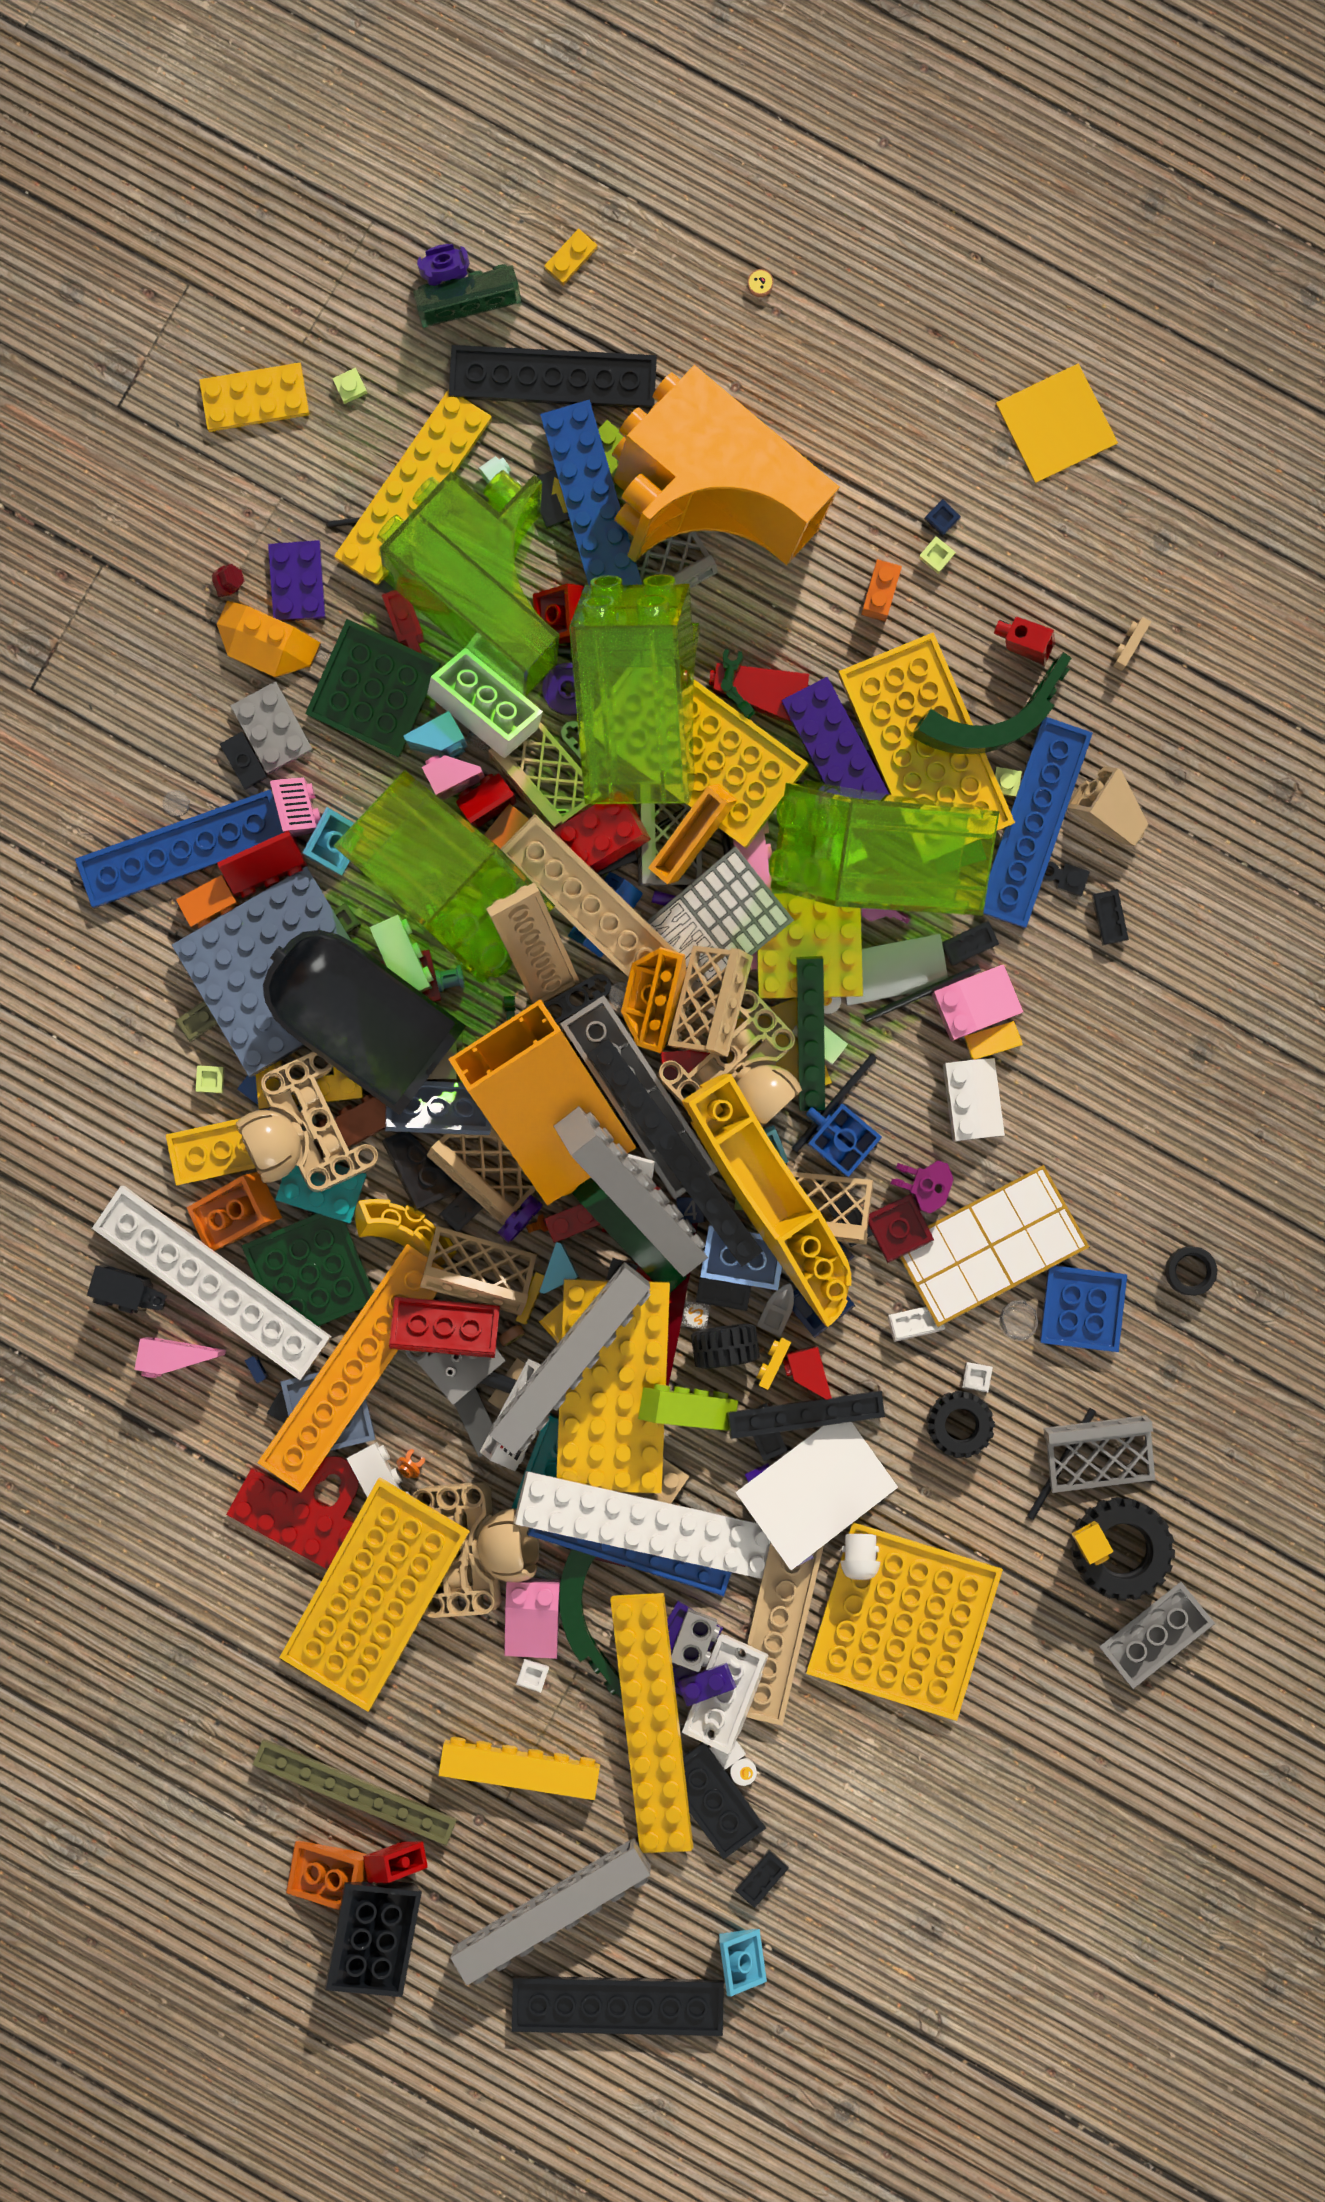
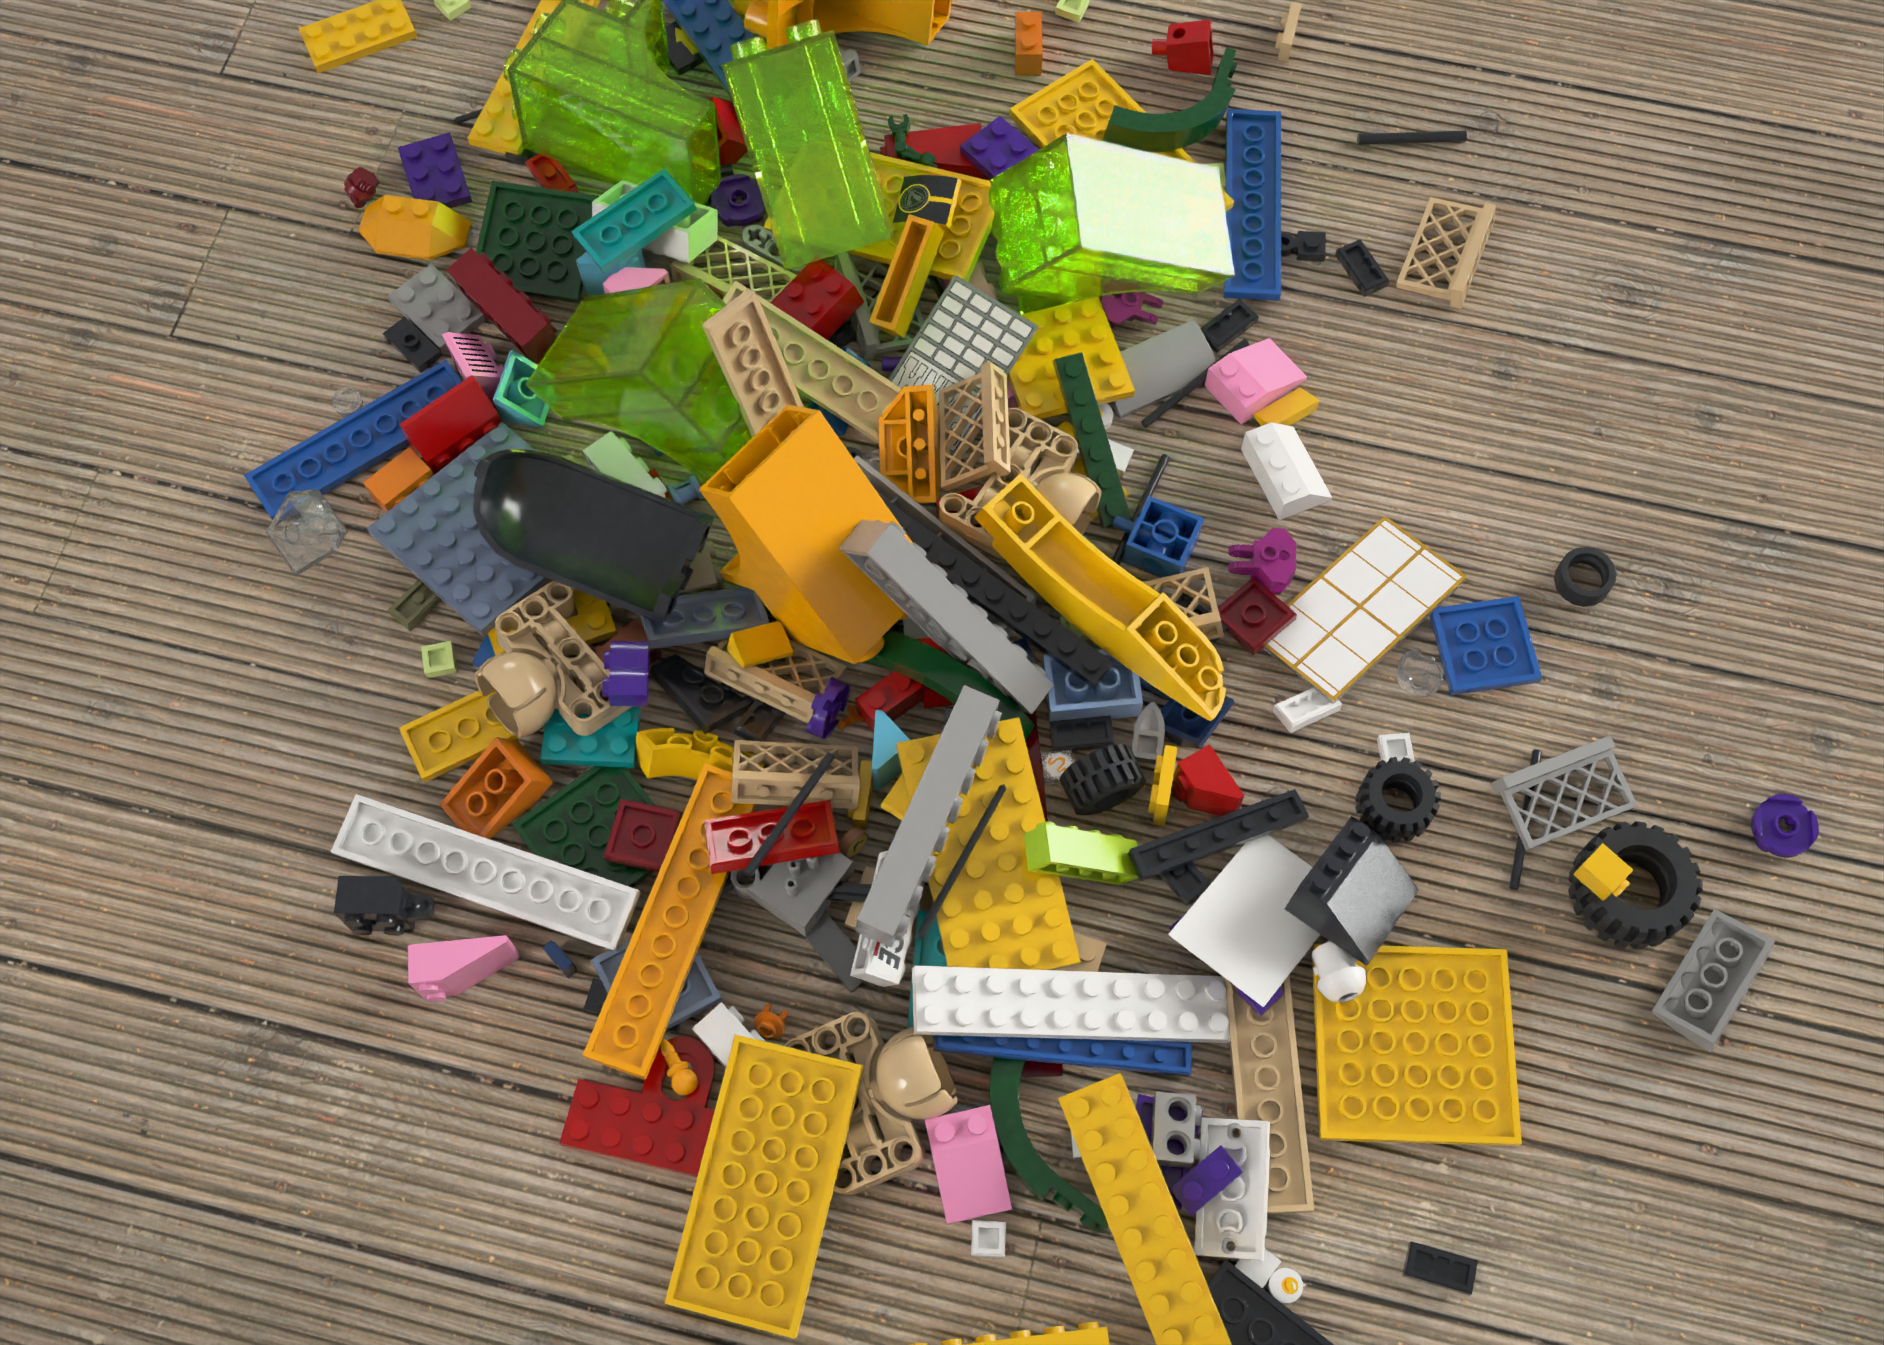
camera: 20 degrees left, 20 degrees down
(119, 926) = (306, 530): none -> clear slope
(330, 757) = (503, 304): none -> dark red brick
(331, 1494) = (683, 1079): none -> light orange bar
(343, 1288) = (641, 835): none -> dark red plate
(361, 1158) = (627, 673): none -> dark purple brick
(462, 1318) = (788, 815): none -> black axle
(463, 716) = (634, 220): none -> teal plate
(477, 1150) = (759, 644): none -> yellow slope
(589, 1392) = (961, 861): none -> black axle
(732, 760) = (928, 198): none -> black slope
(862, 1792) = (1440, 1268): none -> black plate
(895, 1495) = (1354, 892): none -> slope
(1110, 806) = (1324, 167): tan slope -> none
(1206, 789) = (1411, 137): none -> black bar
(1212, 931) = (1467, 261): none -> tan fence
(1252, 1536) = (1775, 841): none -> dark purple plate

